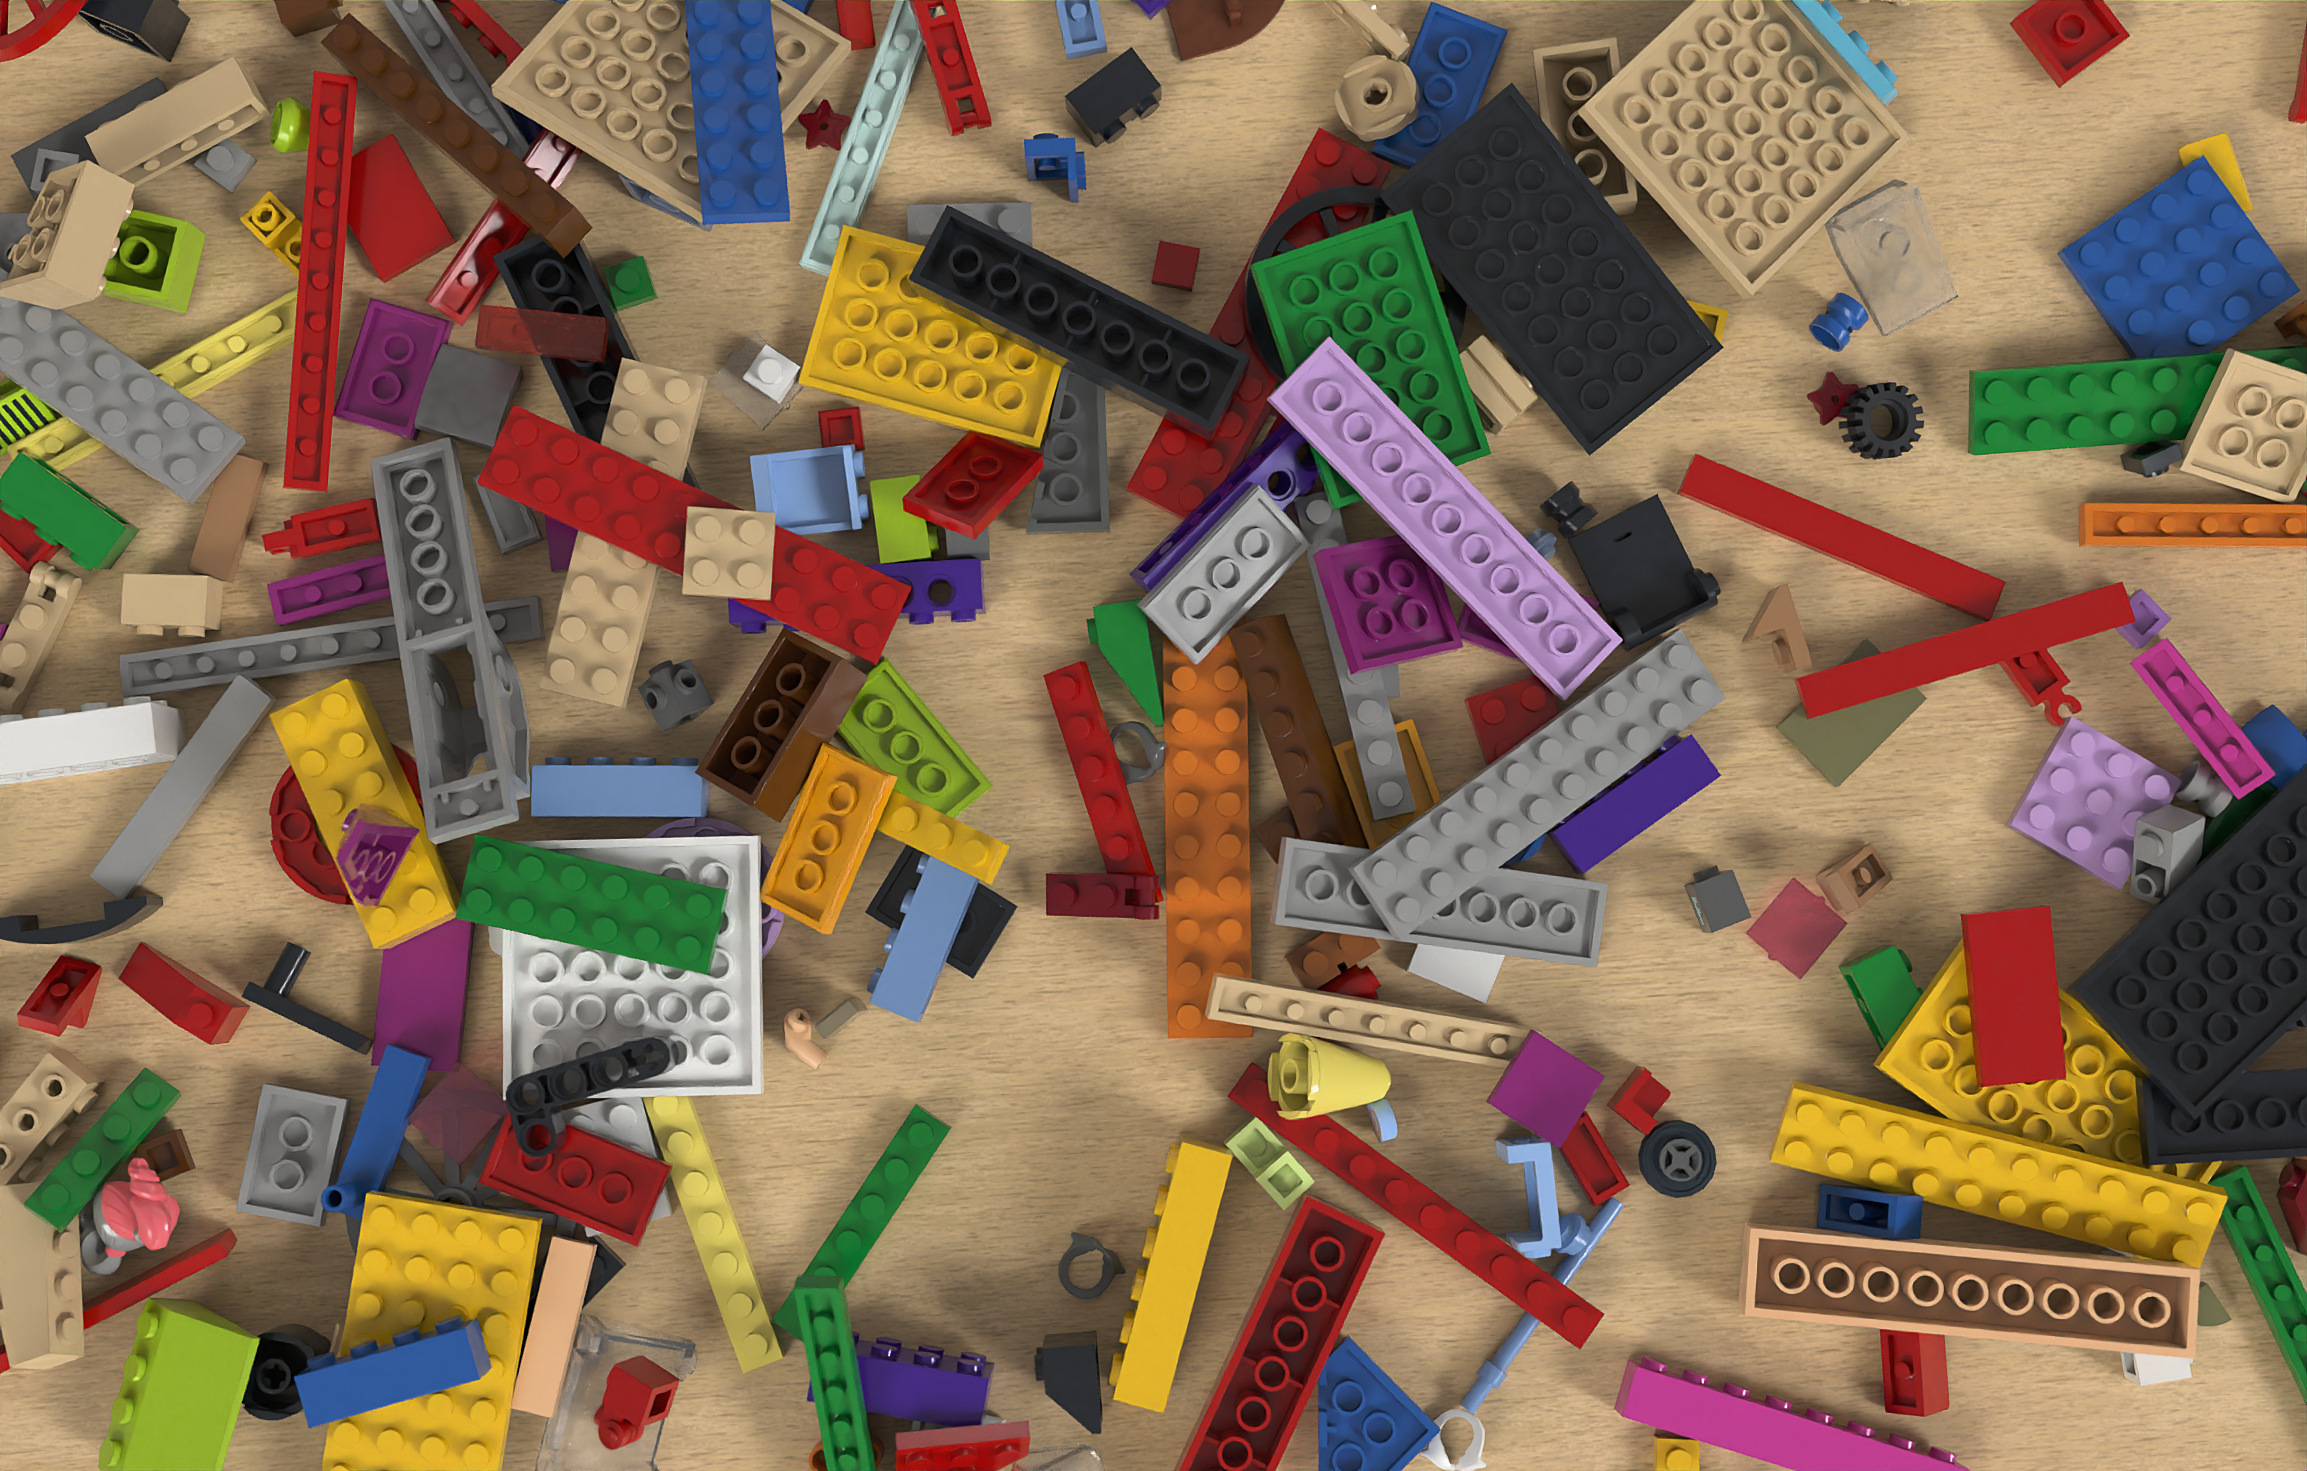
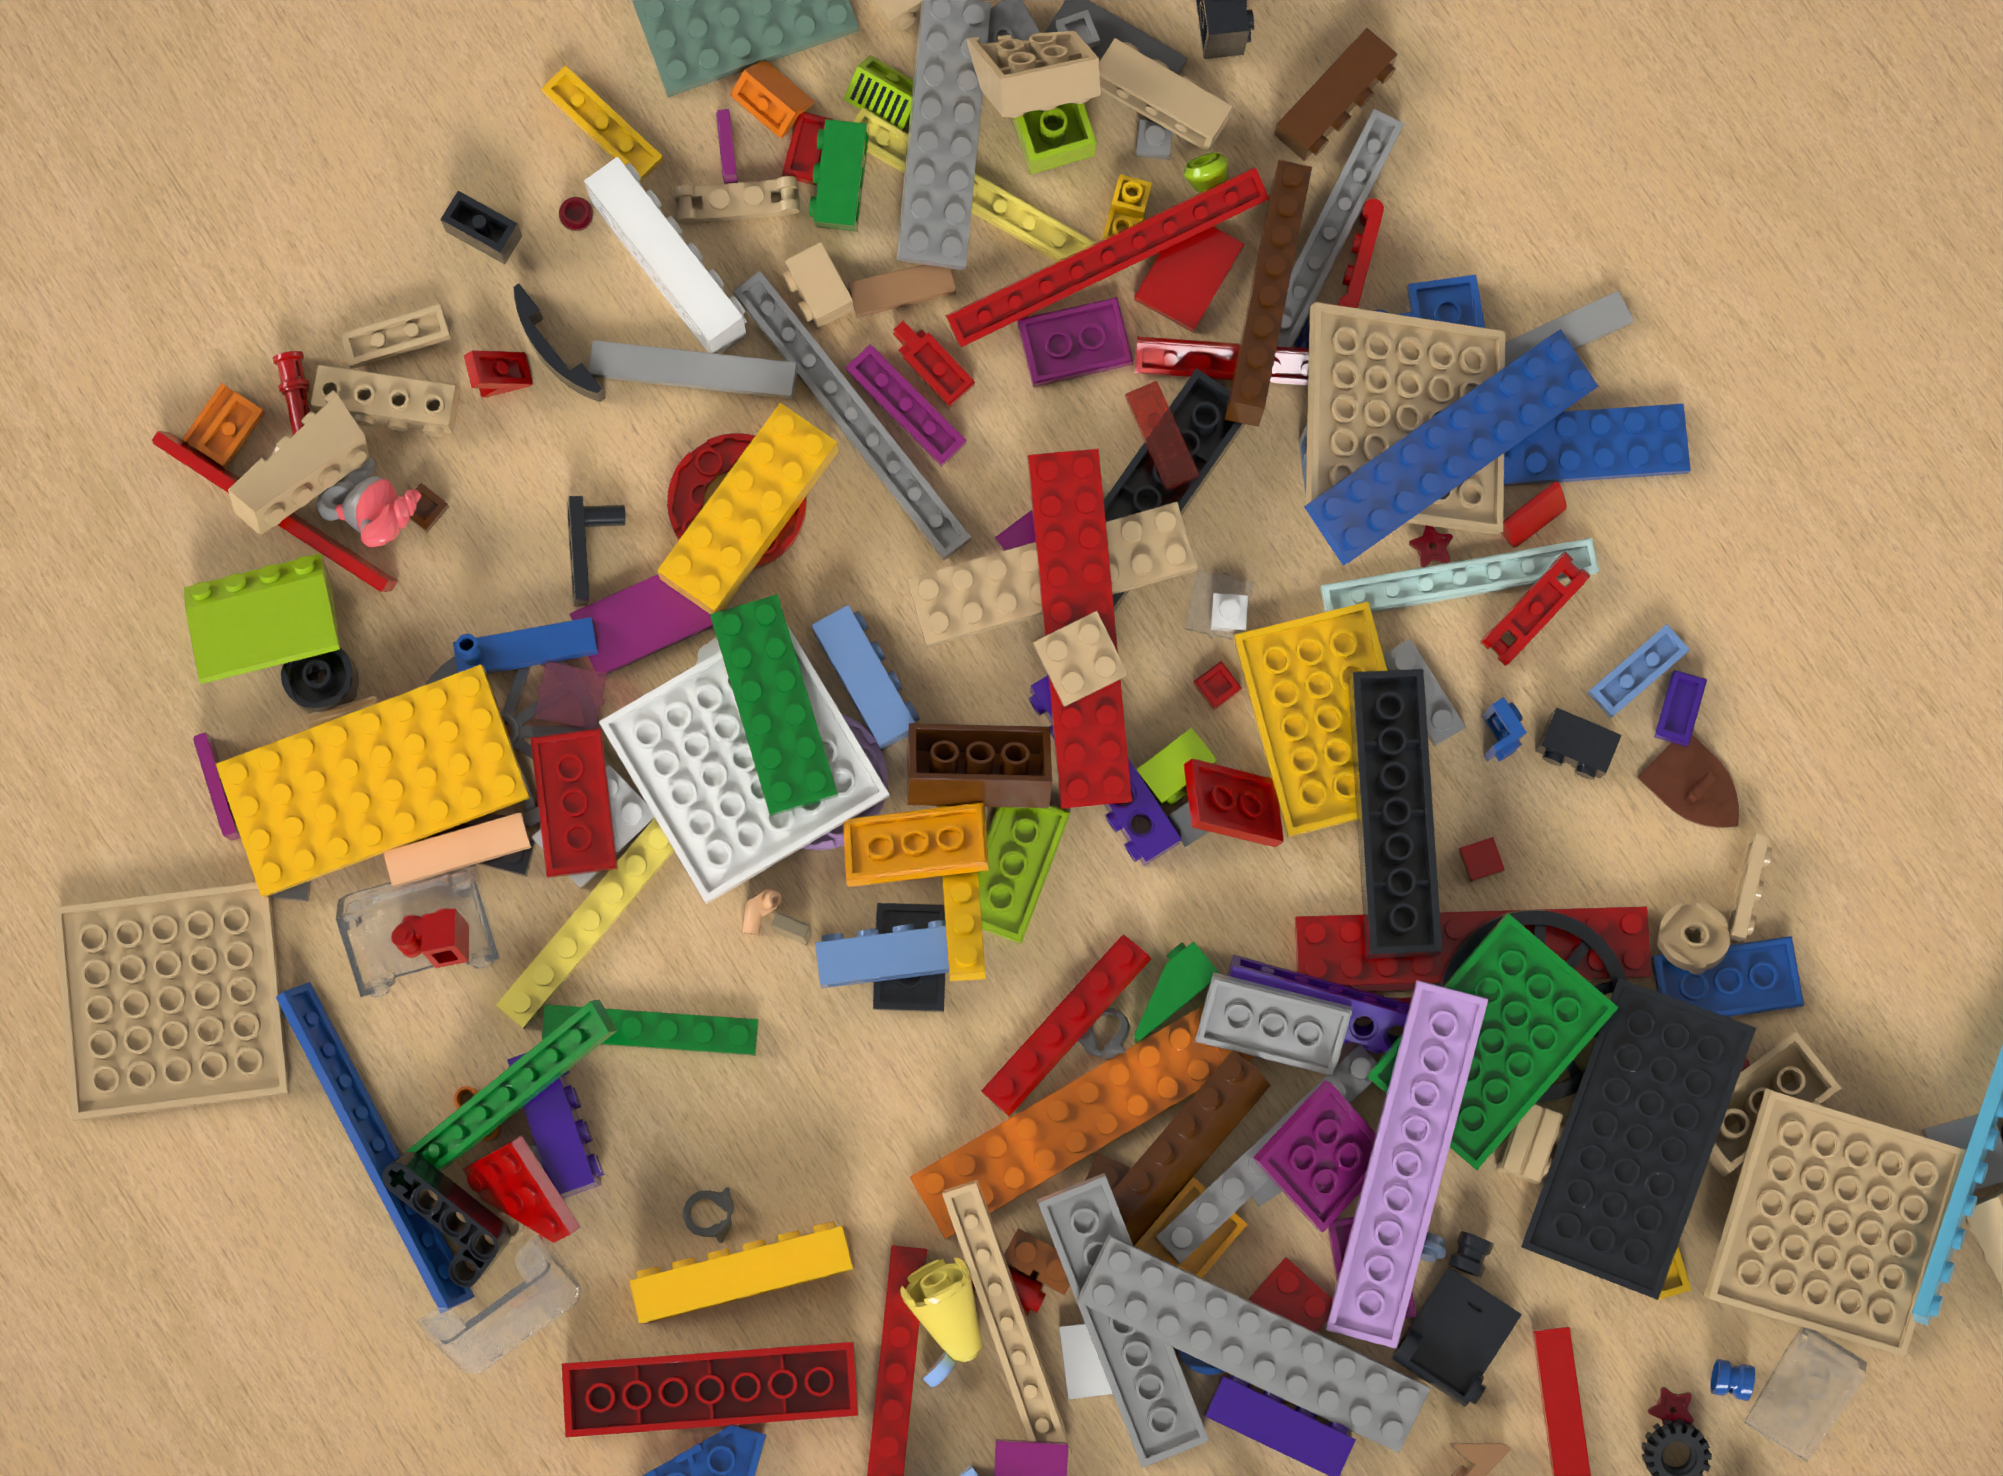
camera: 55 degrees right, 5 degrees down
(102, 1150) = (408, 462): green plate -> none
(183, 995) = (545, 453): red slope -> none
(293, 1154) = (475, 596): light grey plate -> none
(372, 851) = (727, 531): magenta wedge -> none
(393, 1371) = (368, 755): blue brick -> none
(435, 610) = (922, 477): light grey piece -> none
(468, 396) = (1086, 406): flat silver slope -> none
(510, 521) = (1013, 487): light grey tile -> none
(593, 1081) = (647, 779): black beam -> none
(630, 283) = (1236, 473): green plate -> none
(675, 694) = (956, 676): dark grey brick -> none
(812, 489) = (1162, 689): light blue panel -> none
(1072, 1375) = (627, 1245): black slope -> none
(1074, 479) = (1281, 874): dark grey wing -> none
(1101, 895) = (986, 1067): dark red plate -> none
(1269, 1161) = (861, 1303): yellowish green slope -> none

